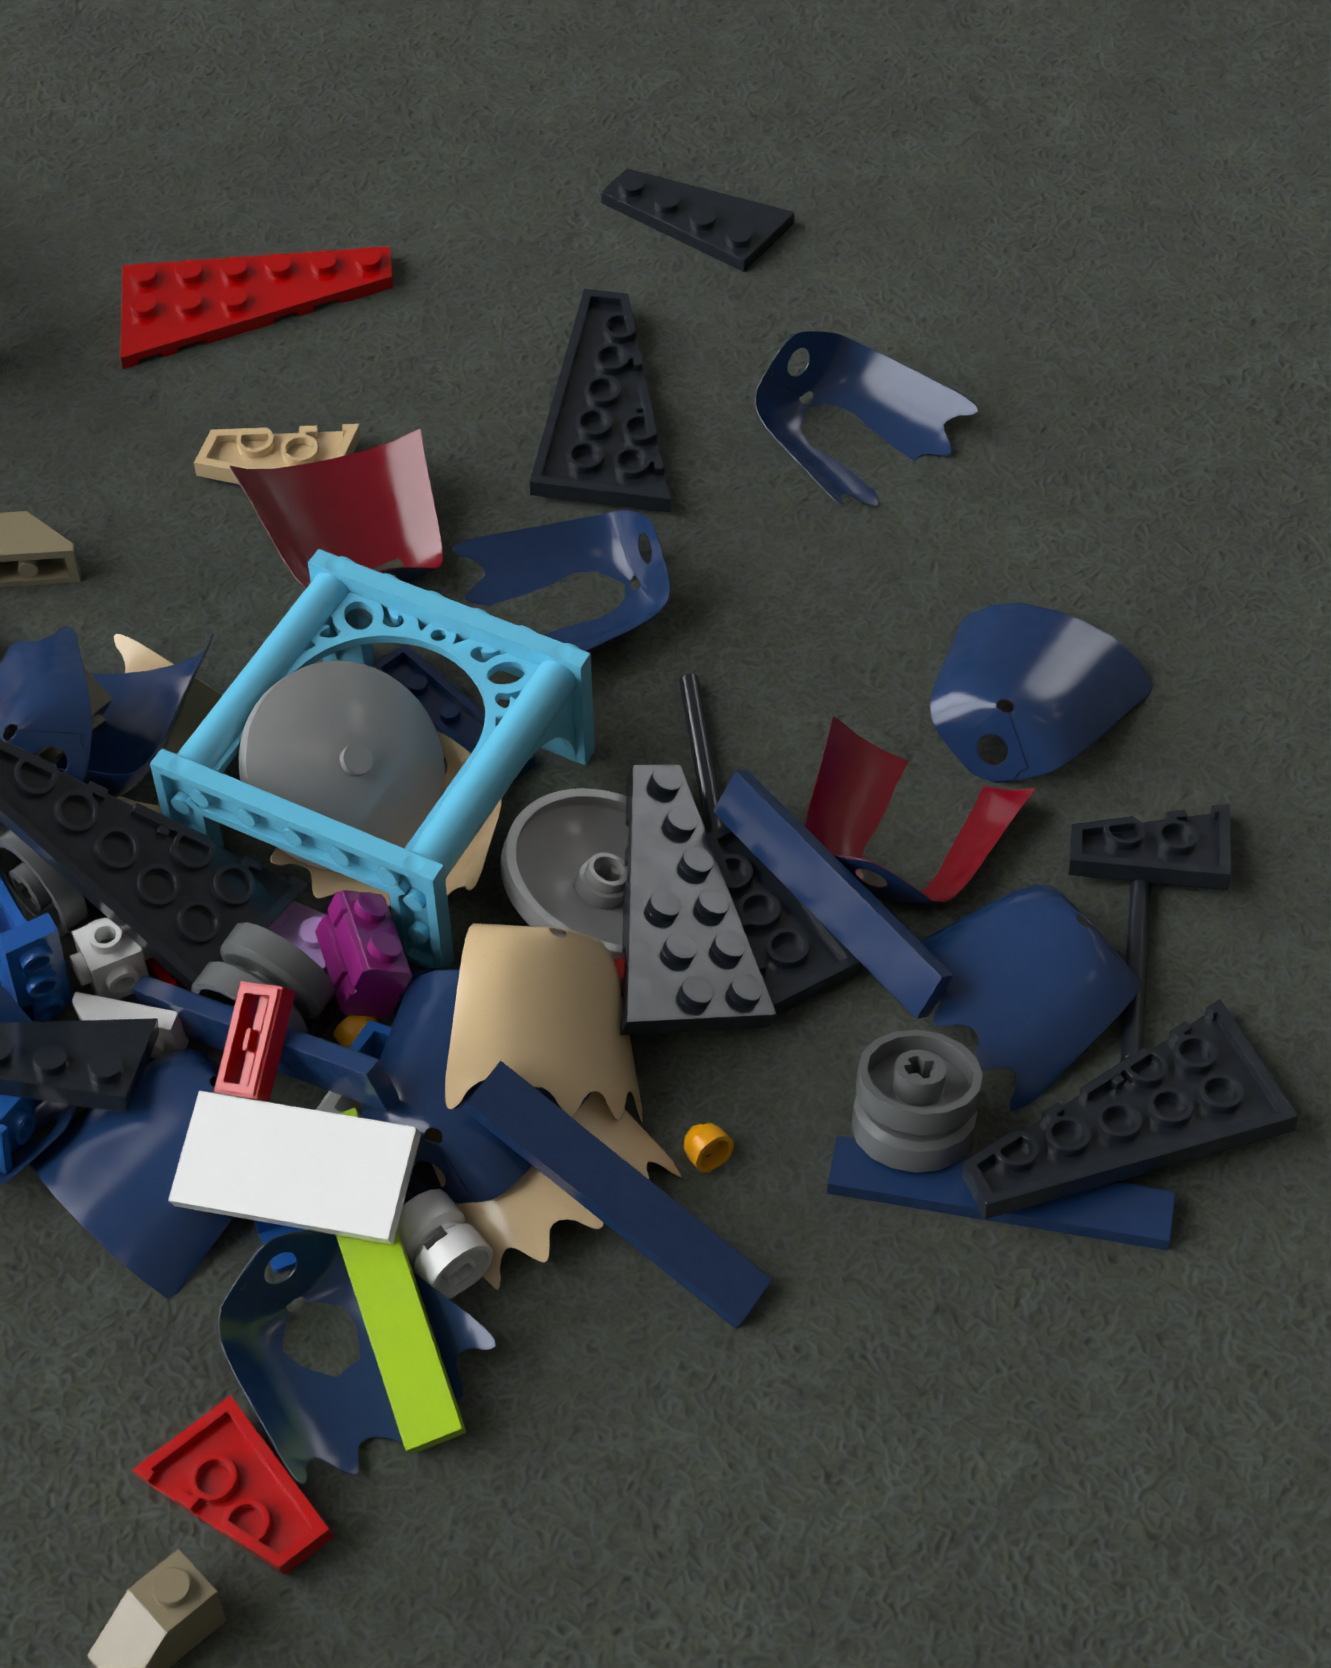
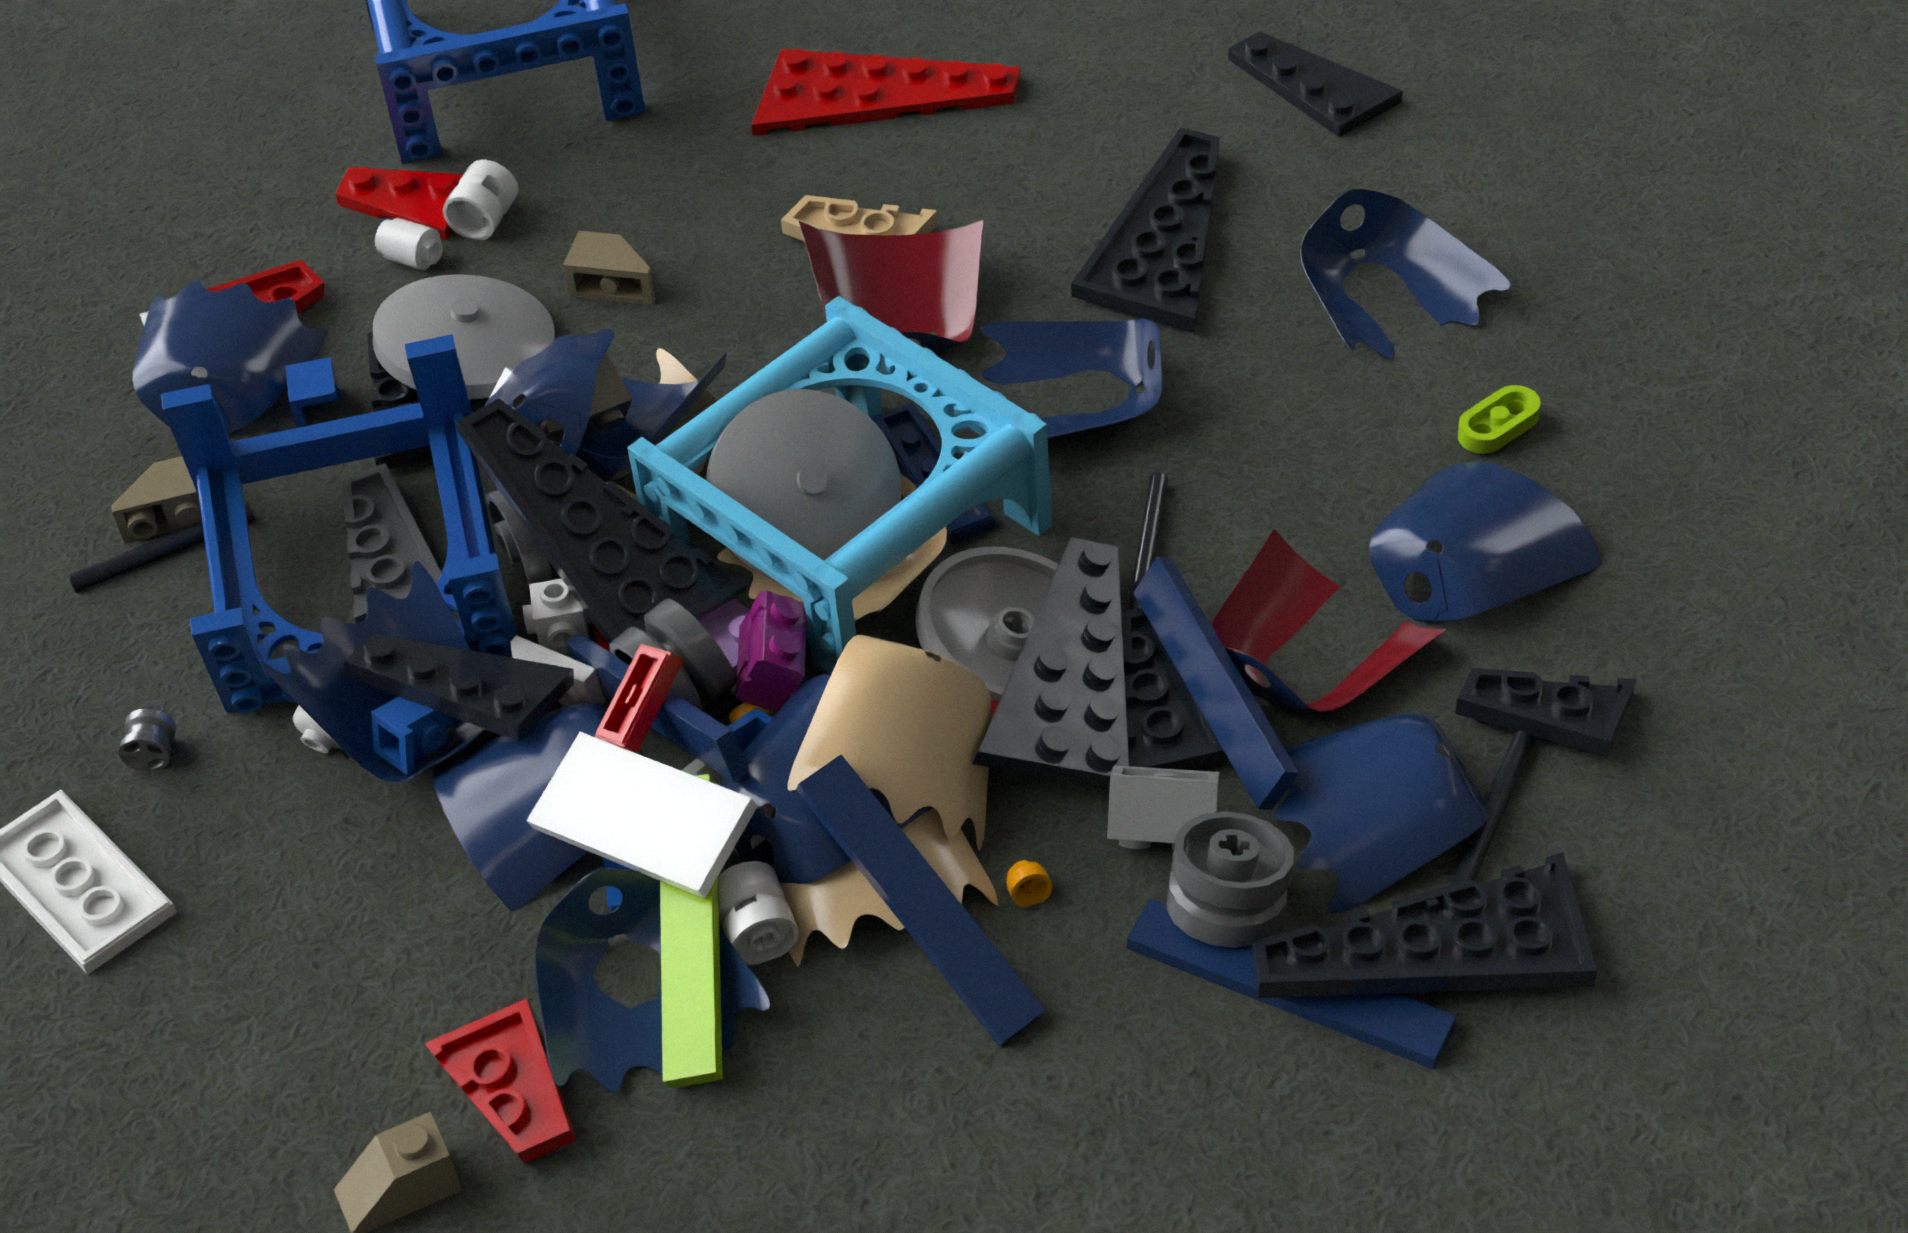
camera: 20 degrees right, 5 degrees down
(818, 1035) = (1157, 802): none -> light grey brick
(1000, 560) = (1492, 420): none -> lime plate

